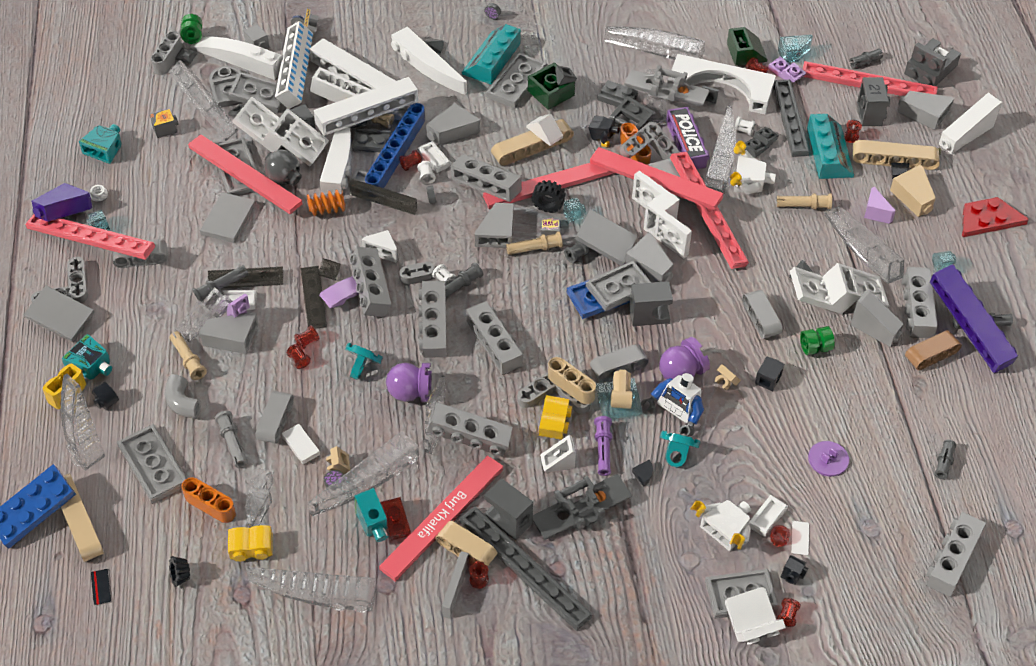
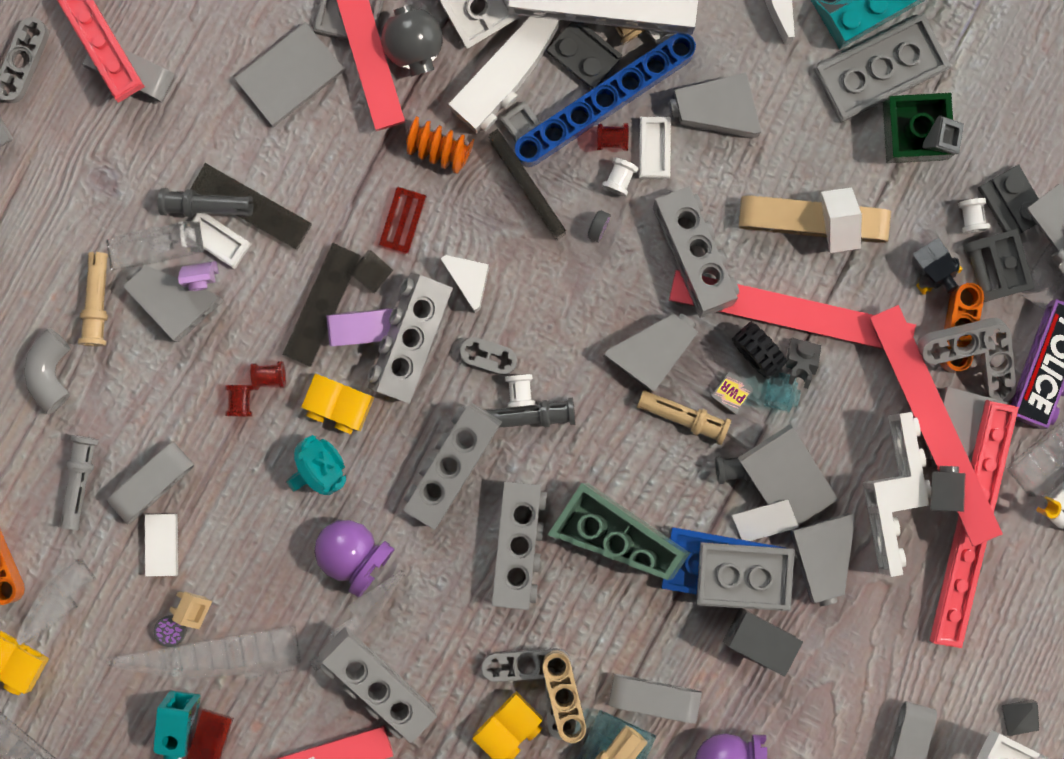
camera: 40 degrees right, 35 degrees up
(333, 254) = (395, 245): none -> clear red tile
(352, 328) = (338, 403): none -> yellow brick
(542, 299) = (611, 530): none -> sand green wedge
(573, 191) = (803, 360): none -> dark grey plate
(603, 105) = (974, 215): none -> white bush
(610, 260) = (765, 521): none -> white sticker
(683, 189) = (948, 489): none -> dark grey brick

